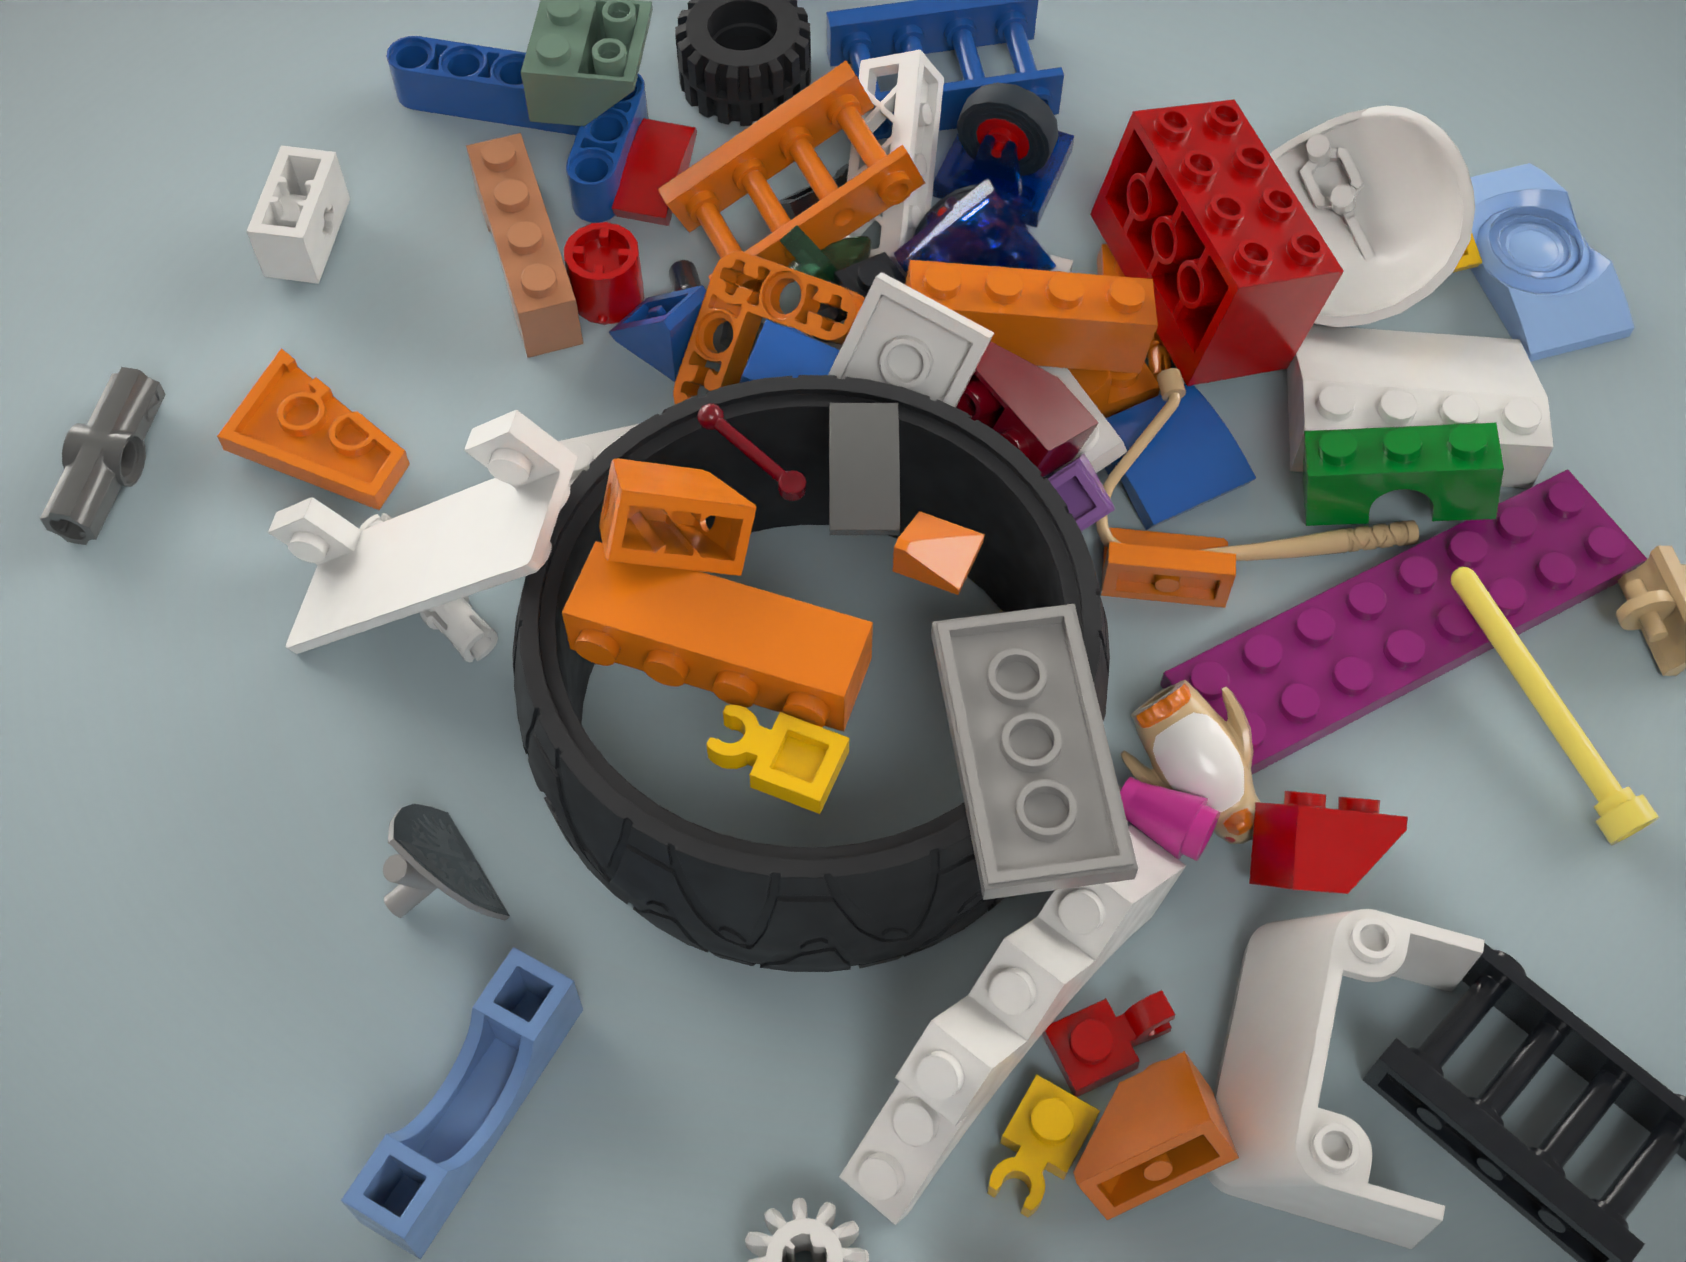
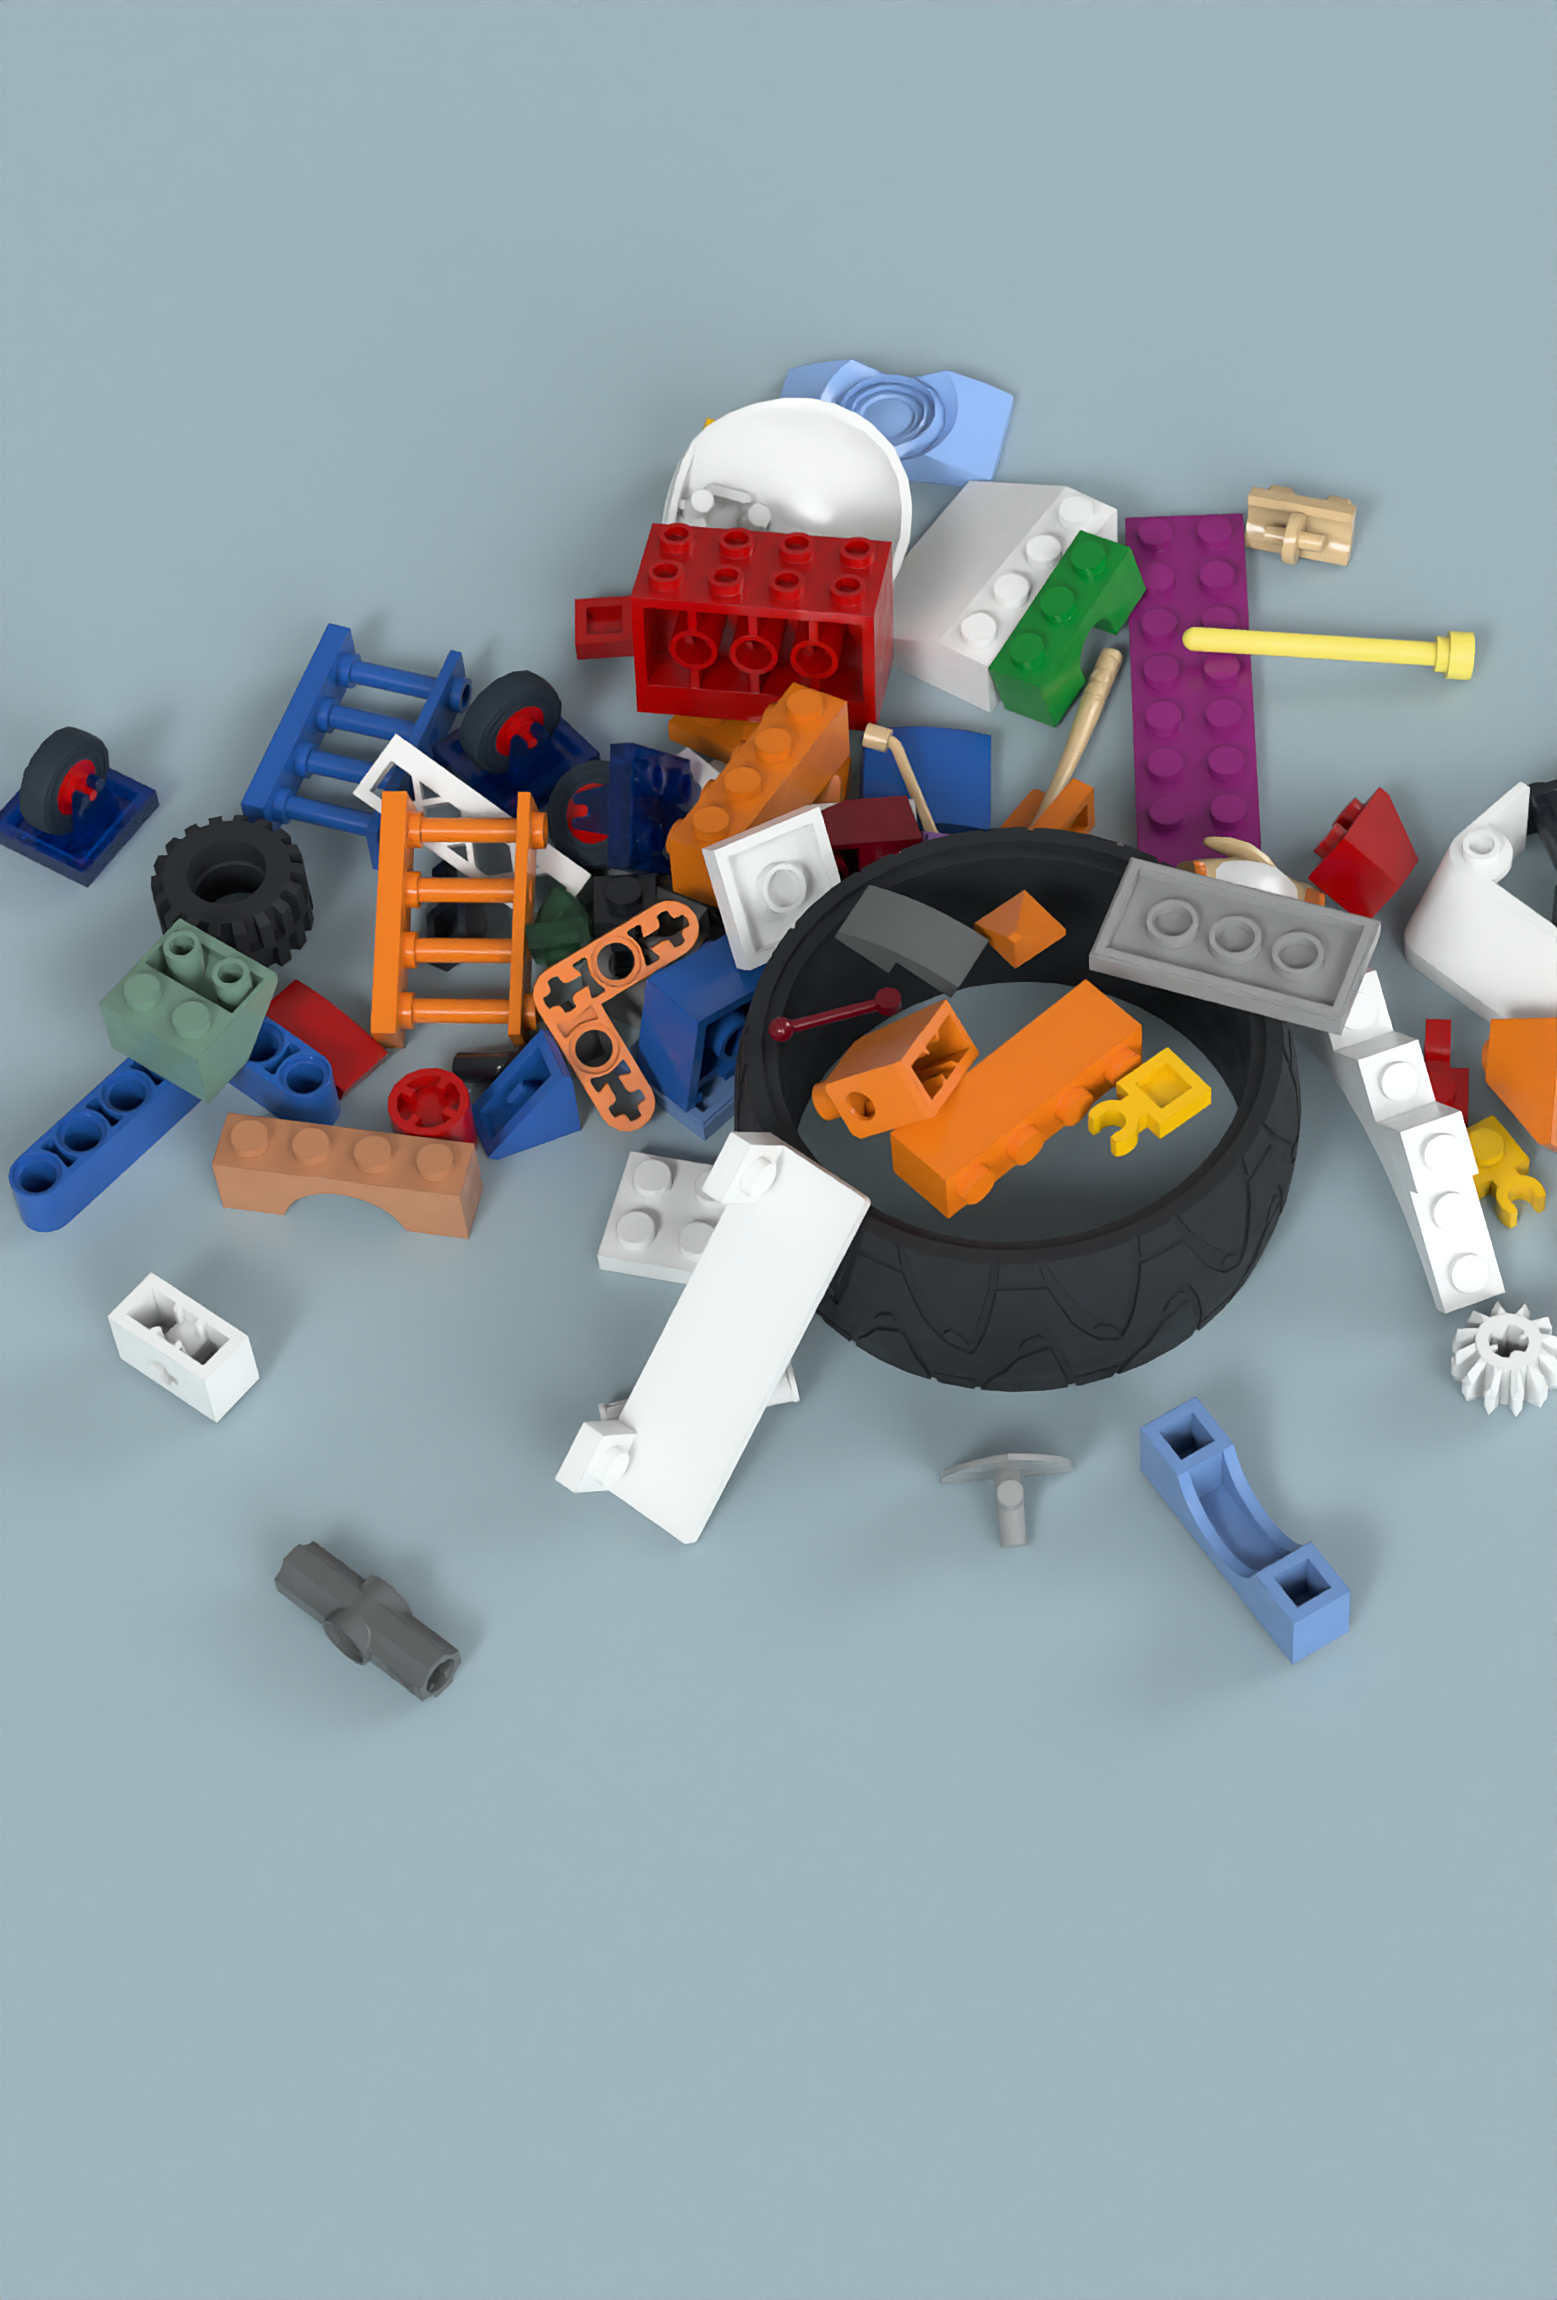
camera: 55 degrees left, 5 degrees down
(312, 436) = (455, 1443): orange wing -> none

